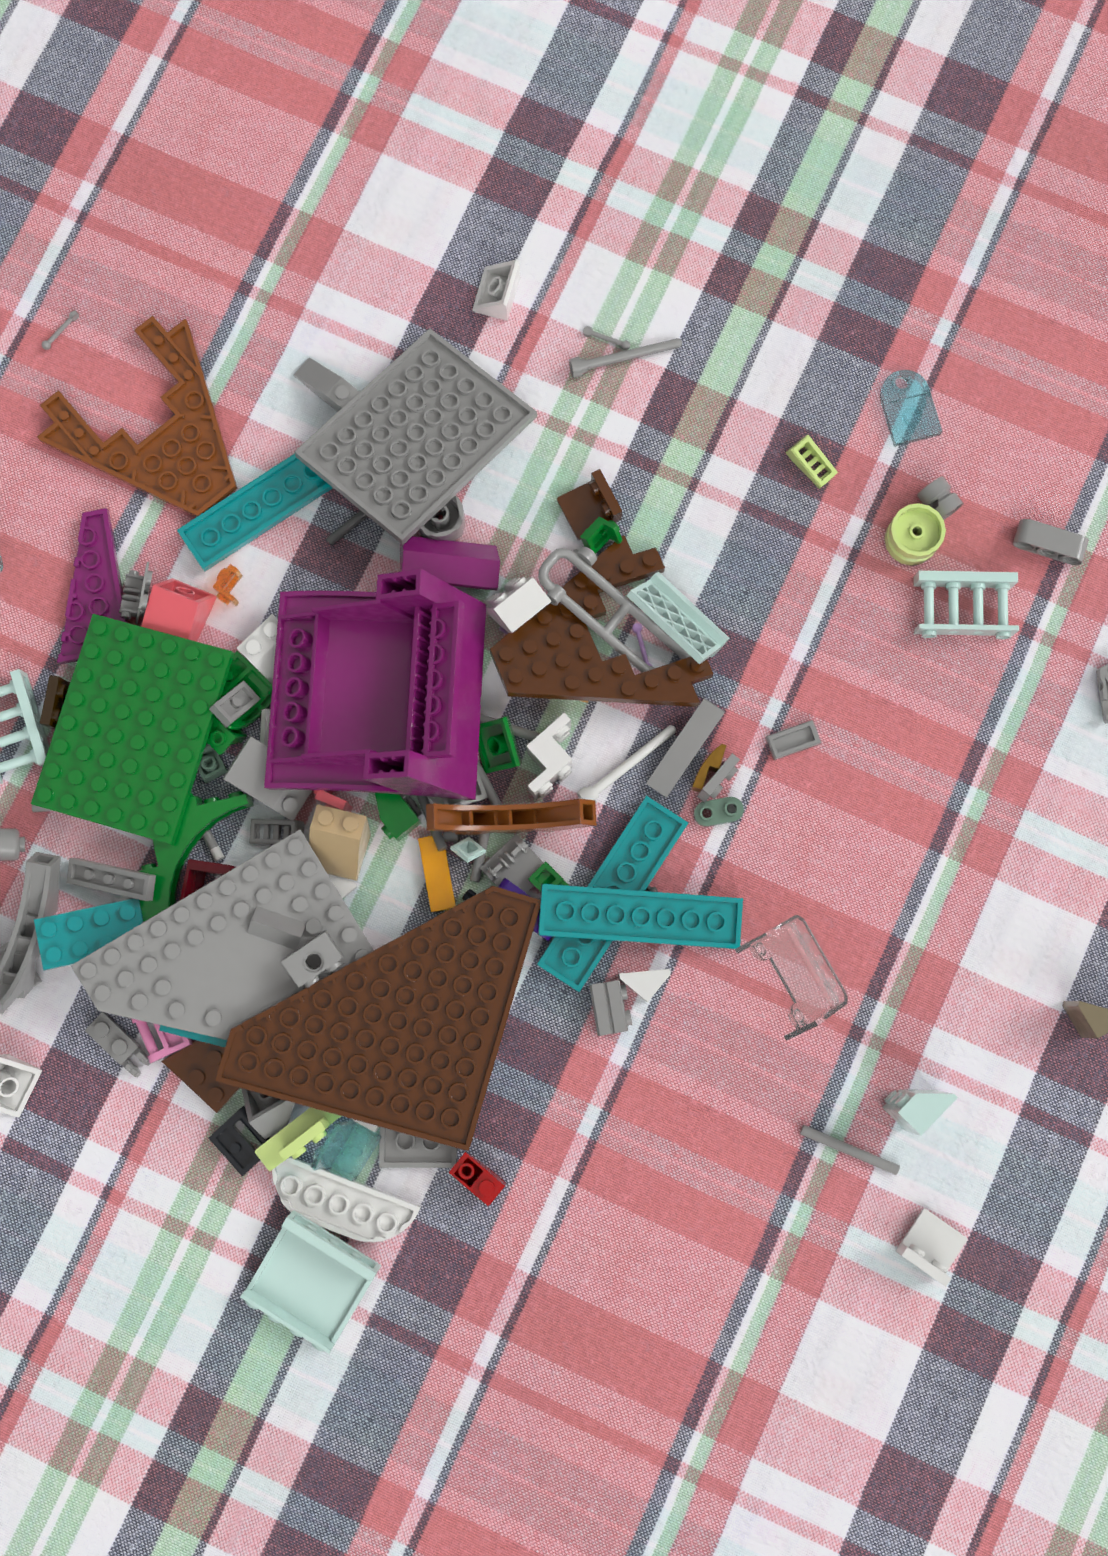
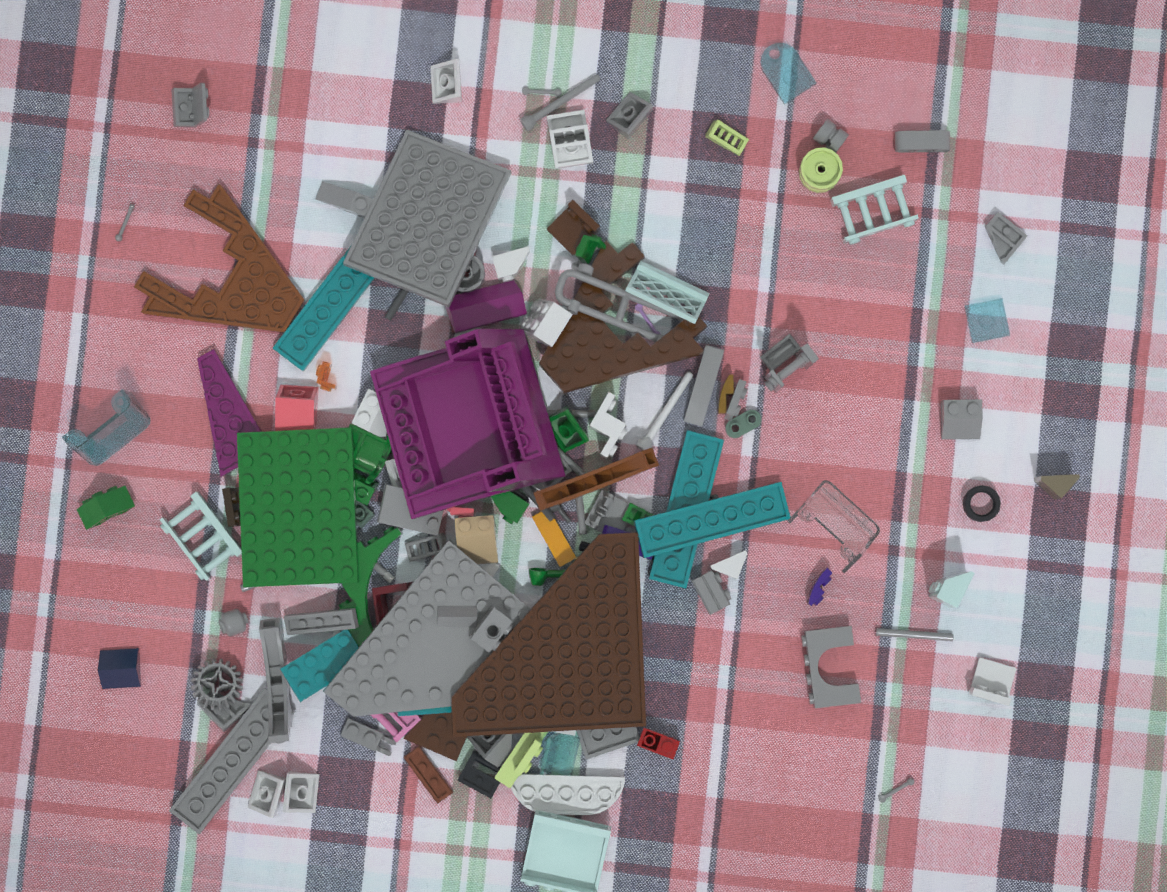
camera: 20 degrees left, 5 degrees up
(136, 594) = (267, 412): light grey hinge -> none
(176, 1118) = (428, 774): none -> copper tile
(182, 219) = (190, 106): none -> light grey bracket
(234, 704) = (365, 464): light grey plate -> none
(401, 914) = (539, 575): none -> green bar
(468, 849) = (571, 513): light aqua slope -> none
(499, 523) = (510, 263): none -> white slope
(620, 399) = (569, 139): none -> white bracket
(704, 398) = (629, 115): none -> light grey slope
(708, 1186) = (816, 644): none -> light grey arch
(741, 1054) = (815, 595): none -> dark purple slope
(741, 1348) = (882, 798): none -> light grey hinge
(820, 755) = (804, 358): none -> light grey fence
(995, 896) = (961, 419): none -> light grey slope
(1004, 1000) = (967, 506): none -> black tyre
(1064, 785) = (987, 320): none -> clear light blue tile

